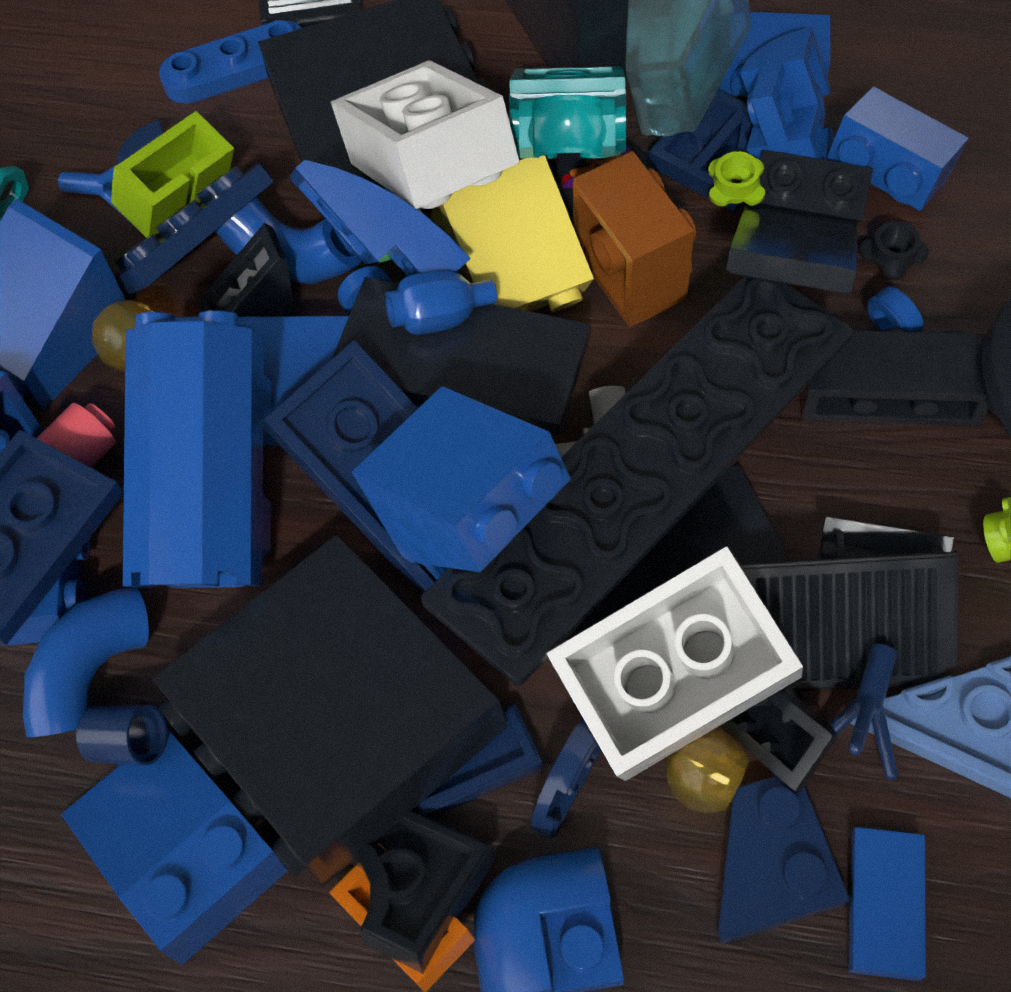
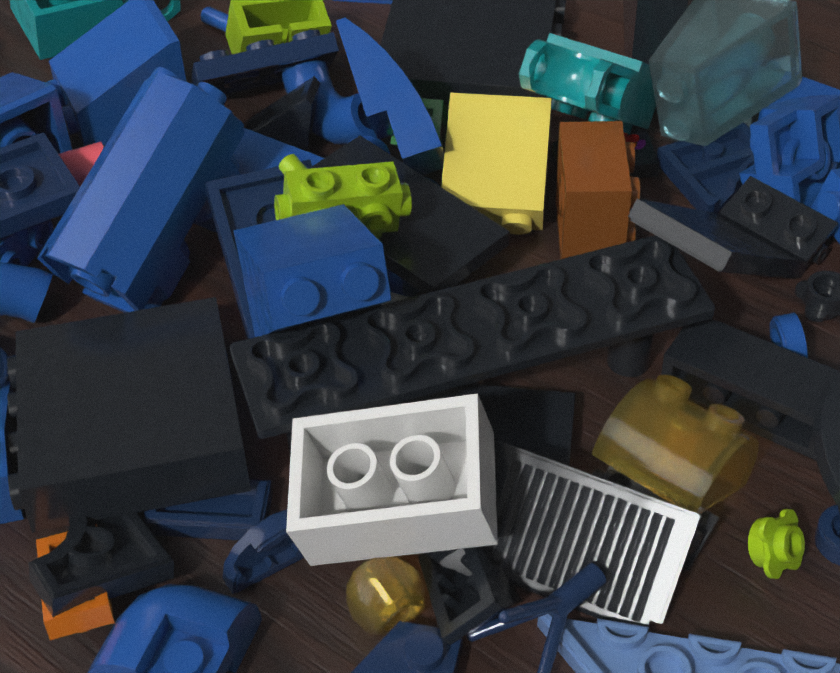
camera: 25 degrees right, 15 degrees down
(402, 380) = (365, 189): none -> lime brick
(426, 133) = (464, 51): white brick -> none
(436, 301) = (409, 160): blue plant -> none
(736, 167) = (712, 187): lime plate -> none
(883, 485) = (676, 445): none -> clear yellow brick

